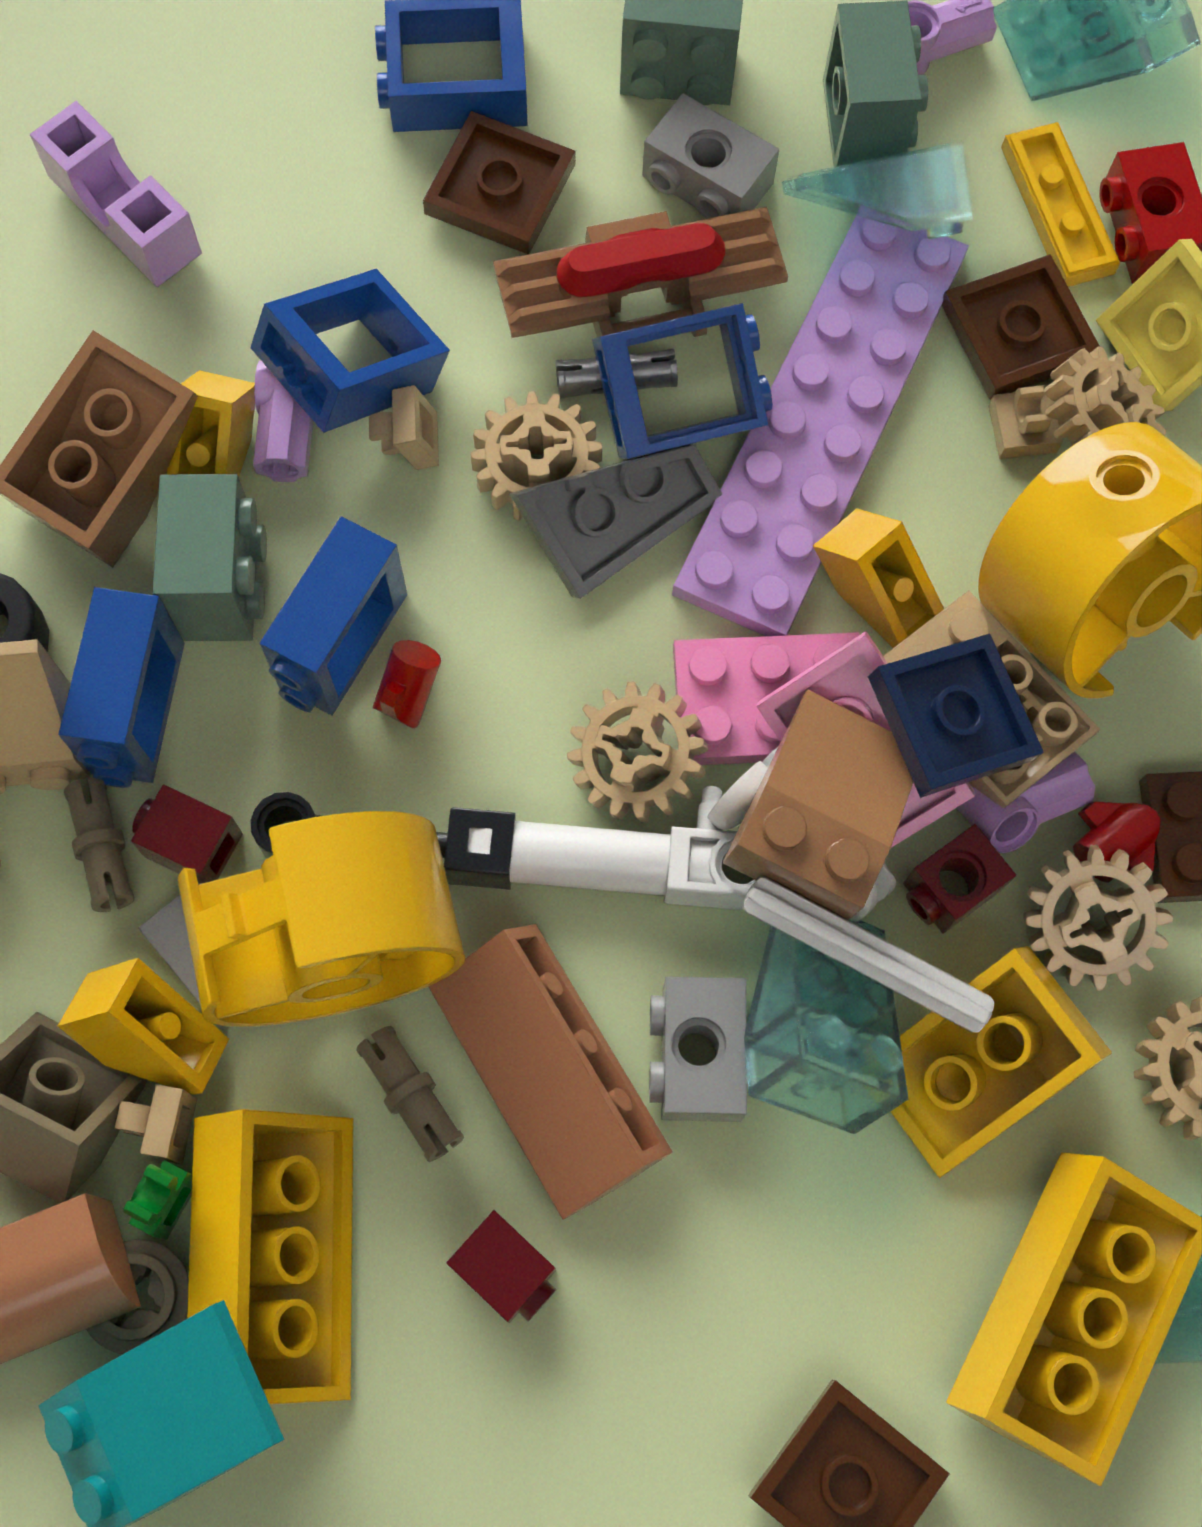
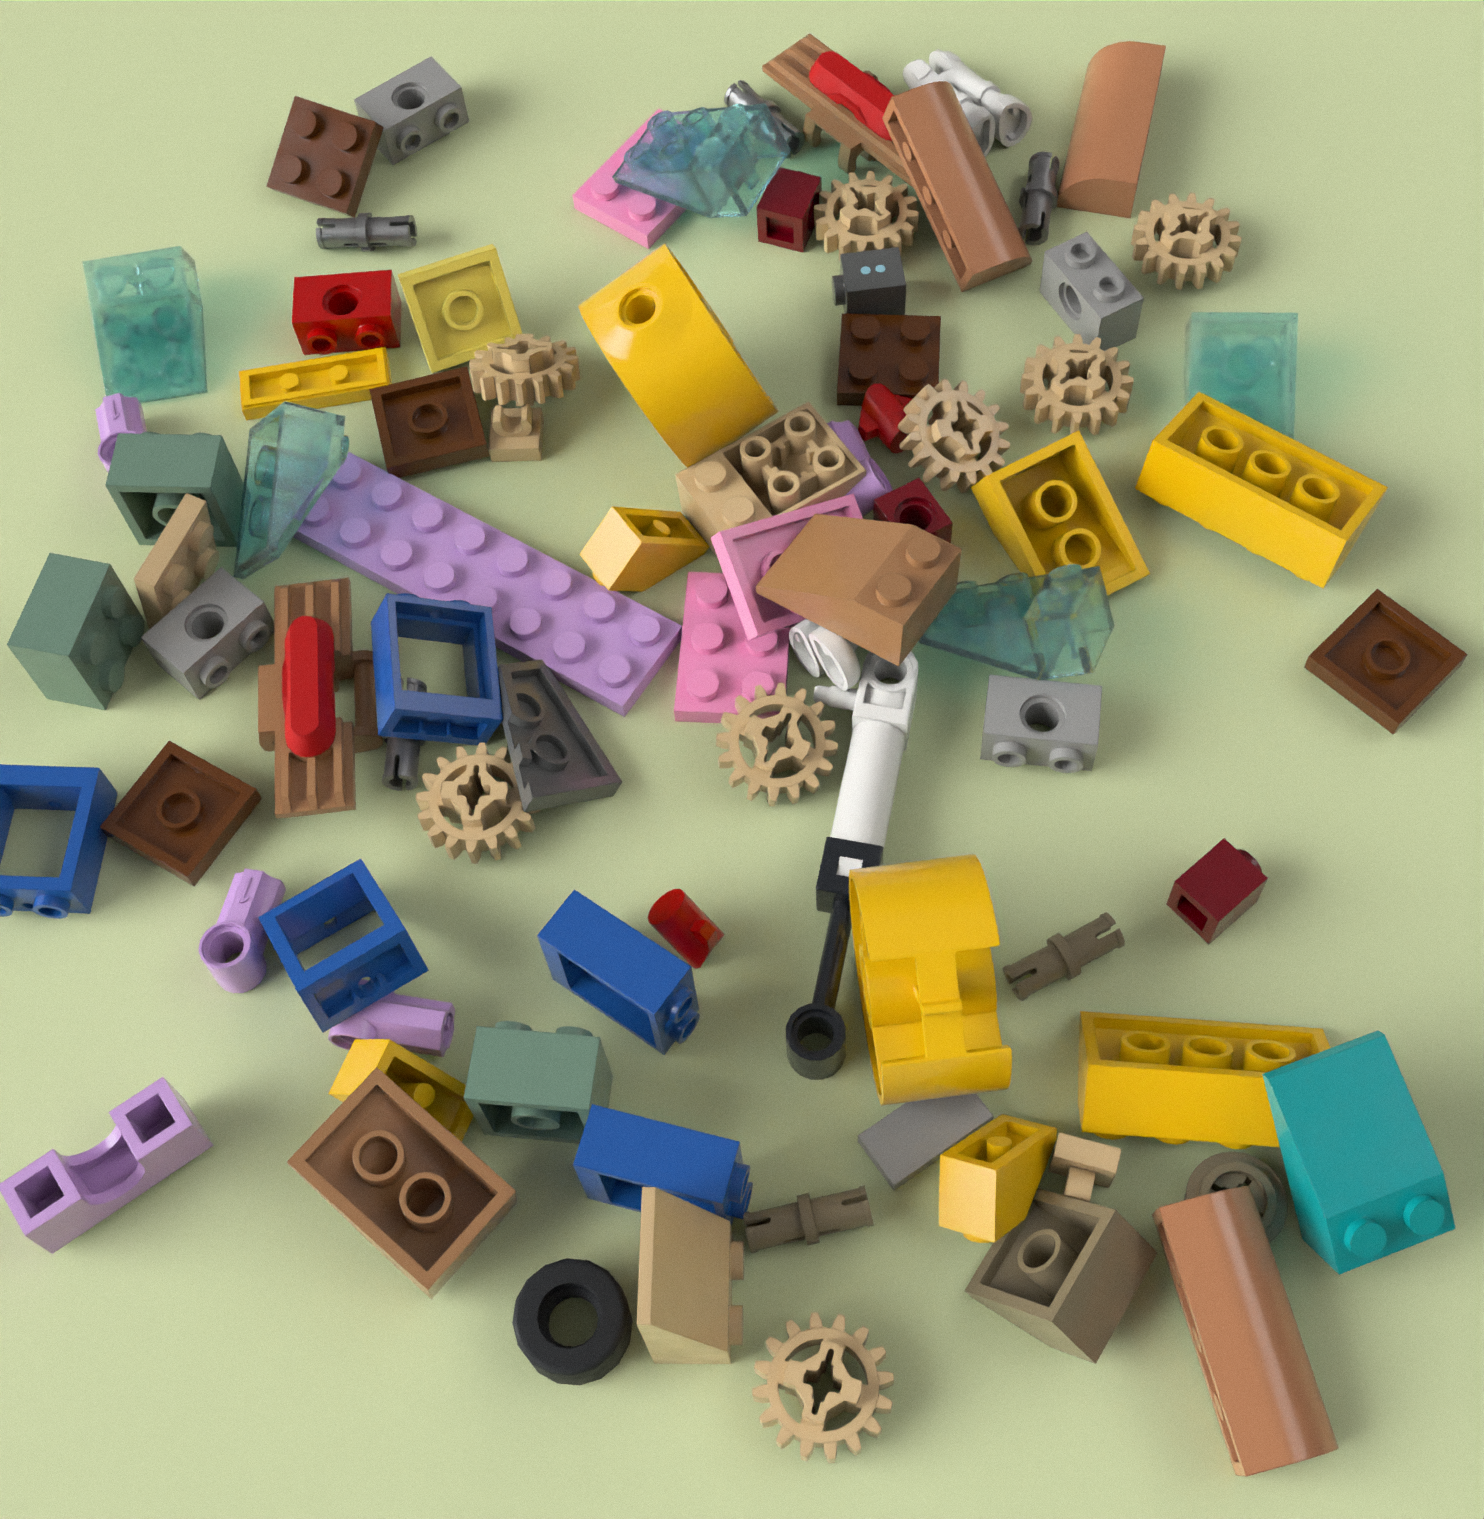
camera: 75 degrees left, 10 degrees down
(159, 1199) = (1153, 1165): green plate -> none
(185, 834) = (810, 1133): dark red brick -> none
(401, 261) = (241, 931): none -> lavender piece
(408, 428) = (427, 910): tan tile -> none
(549, 1069) = (1063, 834): nougat brick -> none
(777, 104) = (177, 560): none -> tan plate
(868, 954) = (983, 573): white axle -> none
(955, 714) = (797, 479): dark blue plate -> none

